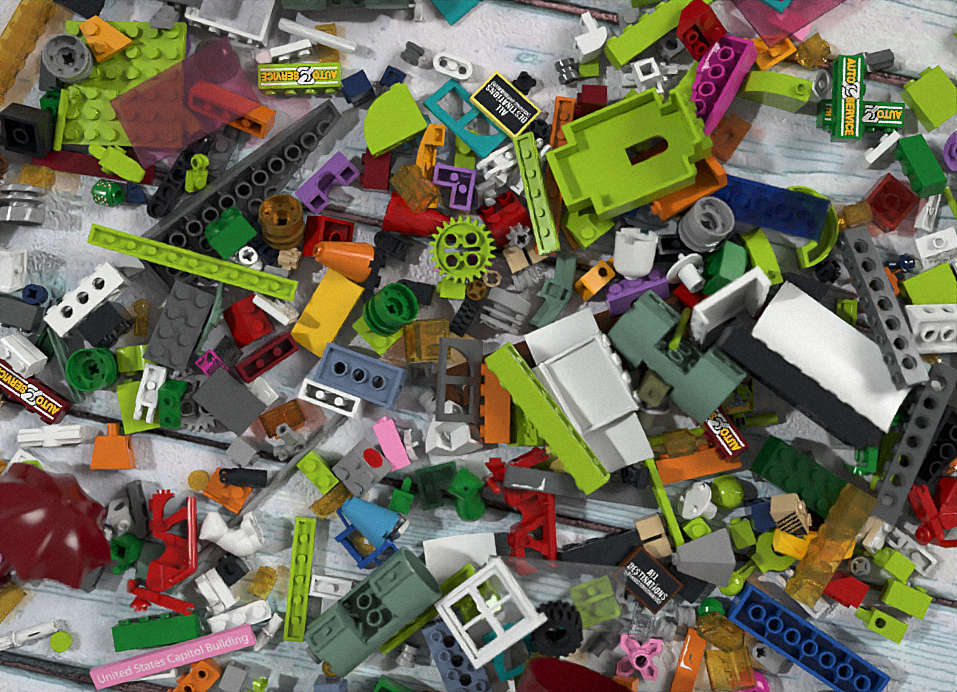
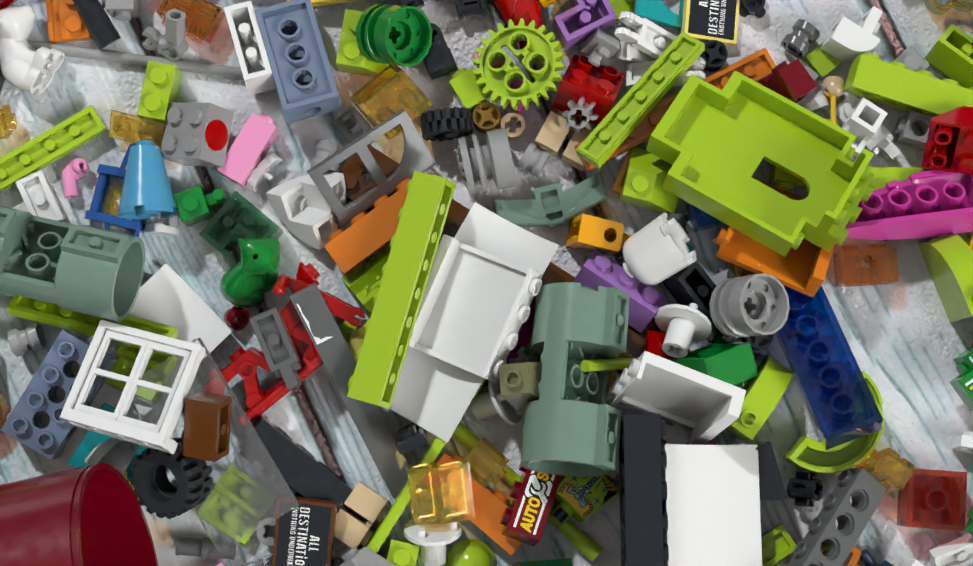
camera: 50 degrees right, 5 degrees down
(328, 558) = (71, 175): none -> bright pink arm
(486, 523) = (236, 318): none -> dark red hinge
(526, 513) = (277, 346): none -> dark grey hinge
(545, 588) = (206, 426): none -> reddish brown brick
(611, 75) = (833, 89): none -> tan hinge
(612, 93) = (816, 104): none -> white tile
(678, 481) = (440, 493): none -> clear yellow slope

